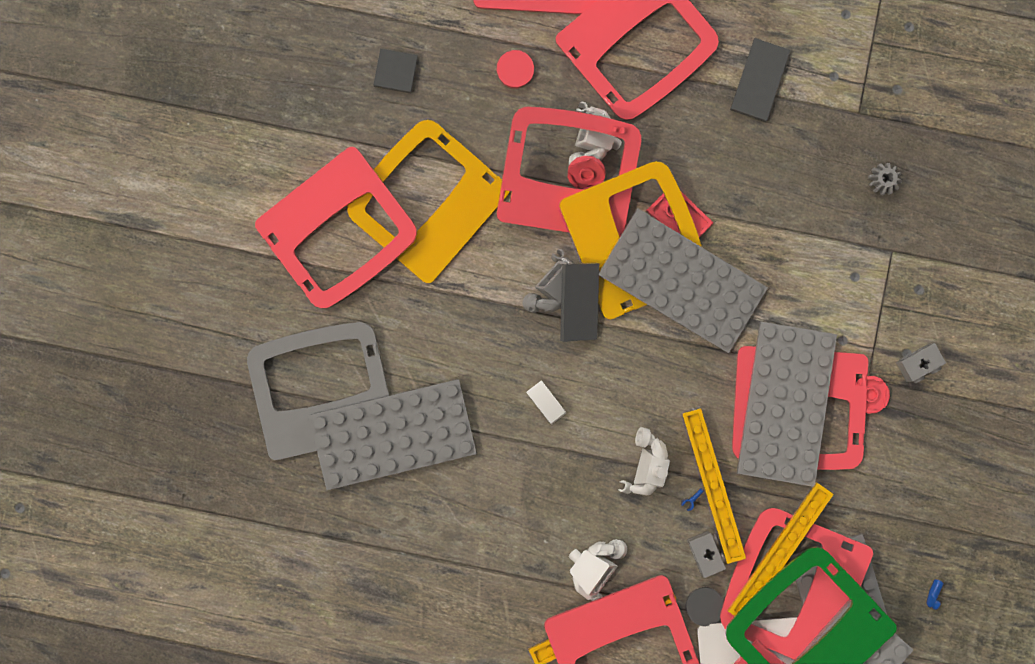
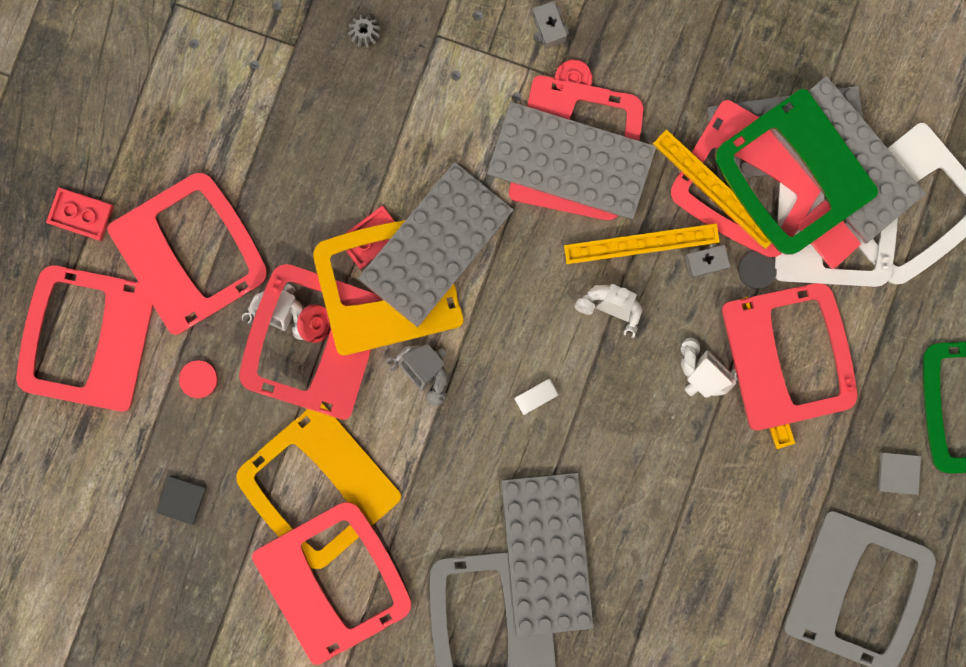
camera: 75 degrees left, 0 degrees up
(579, 301) = (442, 349): dark grey tile -> none
(692, 499) = (651, 266): blue hand -> none
(760, 80) = (246, 137): dark grey tile -> none
(933, 595) = (773, 47): blue arm -> none

